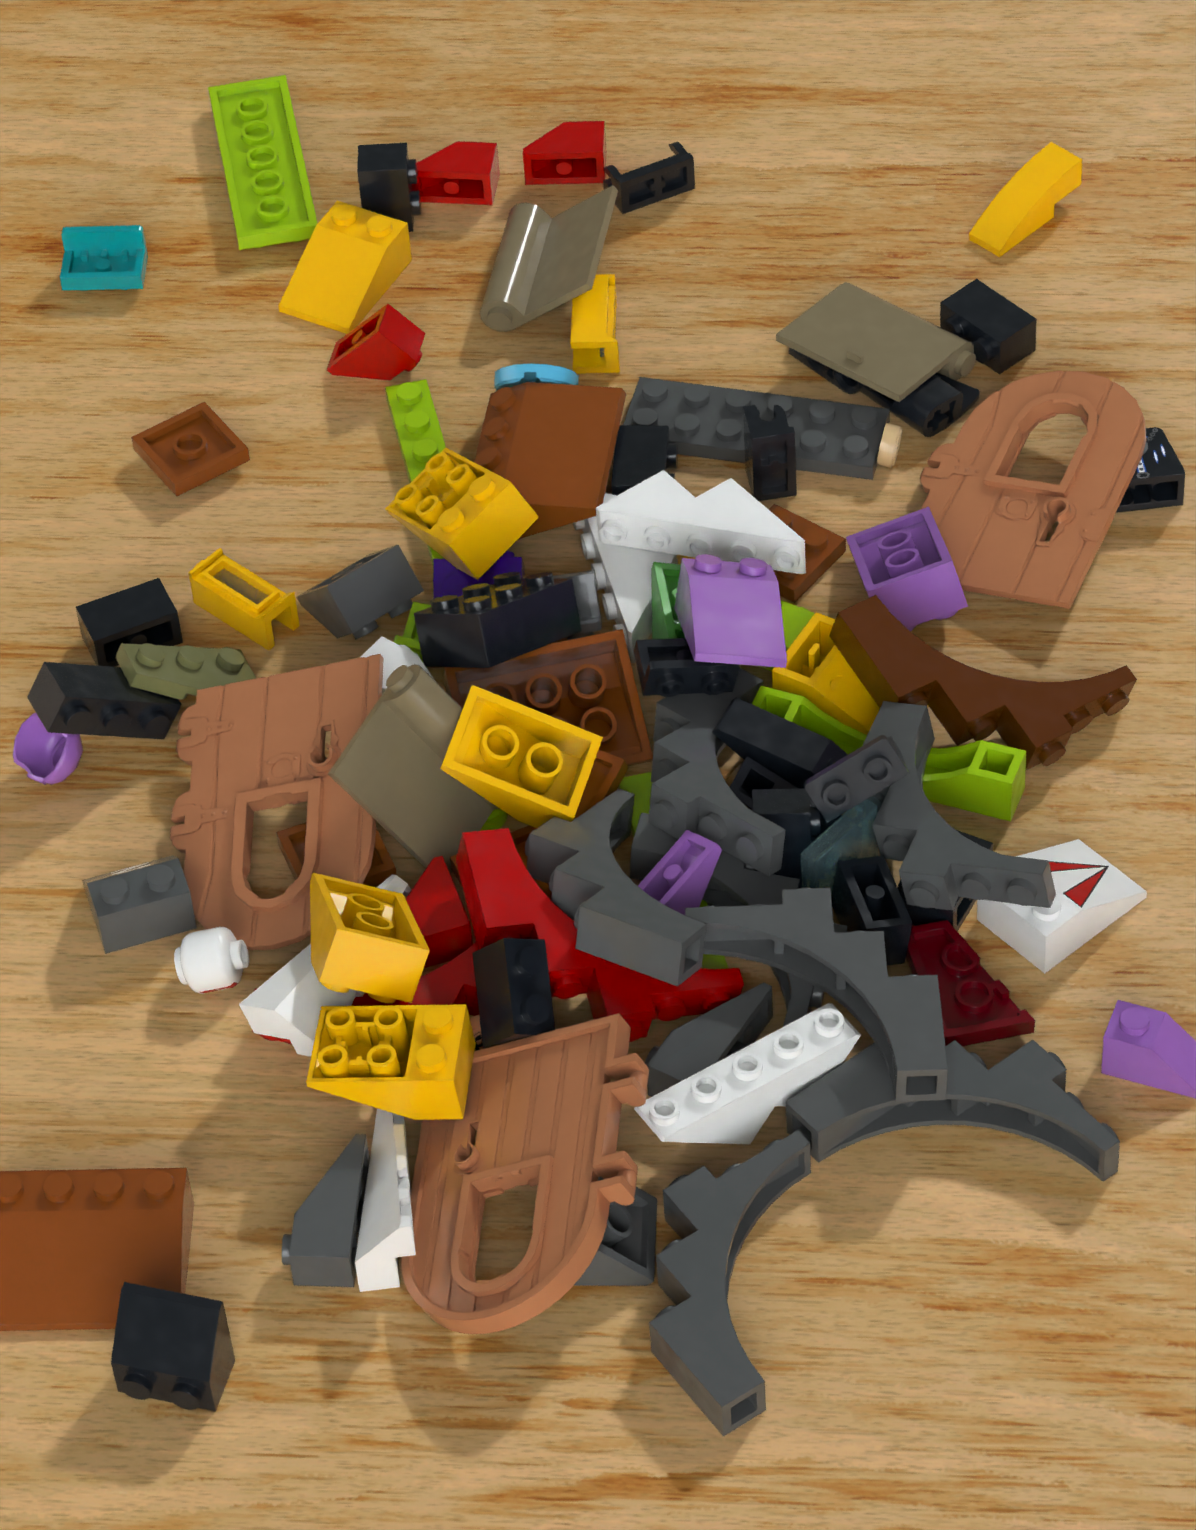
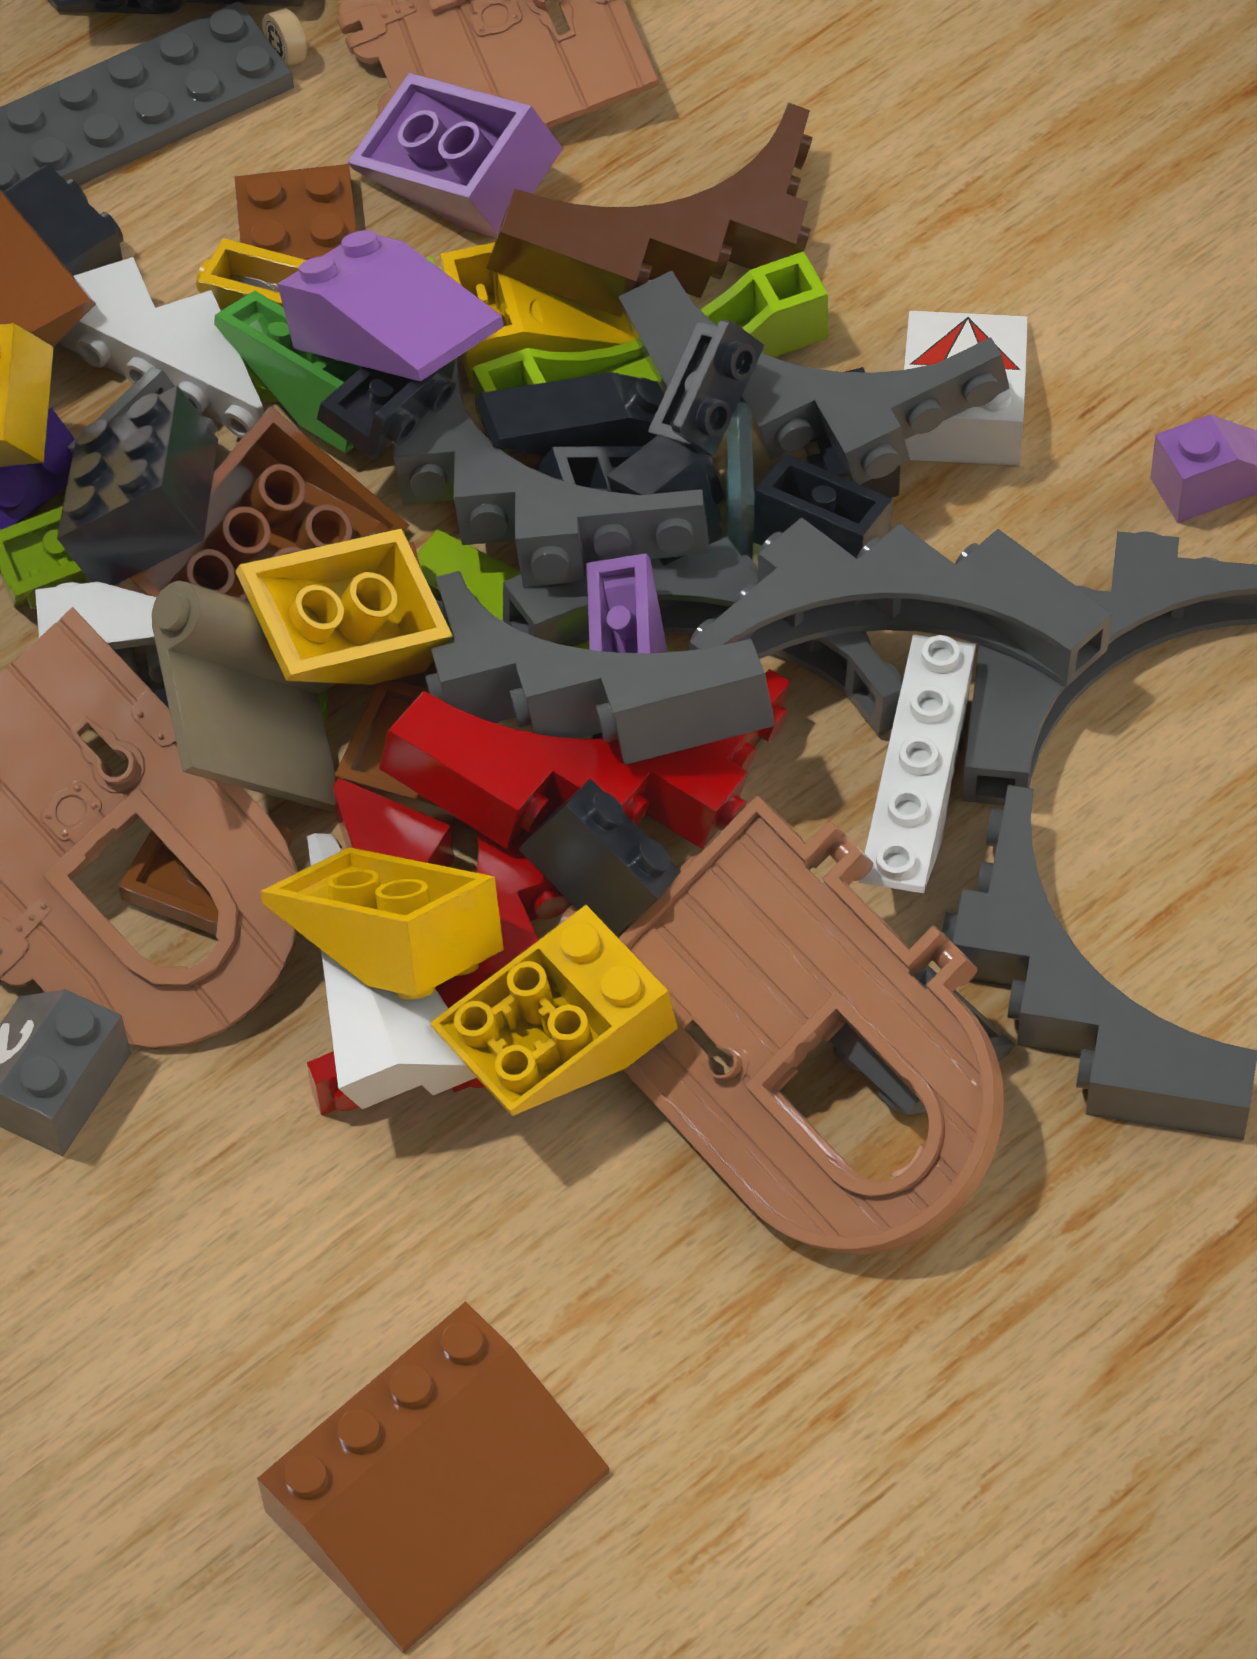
camera: 45 degrees left, 10 degrees up
(171, 1347) = (659, 1497): black slope -> none
(211, 960) = (207, 1071): white head -> none
(328, 1223) = (664, 1253): dark grey slope -> none
(387, 1211) = (696, 1179): white wedge -> none
(709, 1038) = (816, 770): dark grey slope -> none
(718, 523) = (242, 231): white slope -> none
(769, 454) = (186, 124): black hinge -> none
(971, 1002) = (953, 522): dark red wing -> none

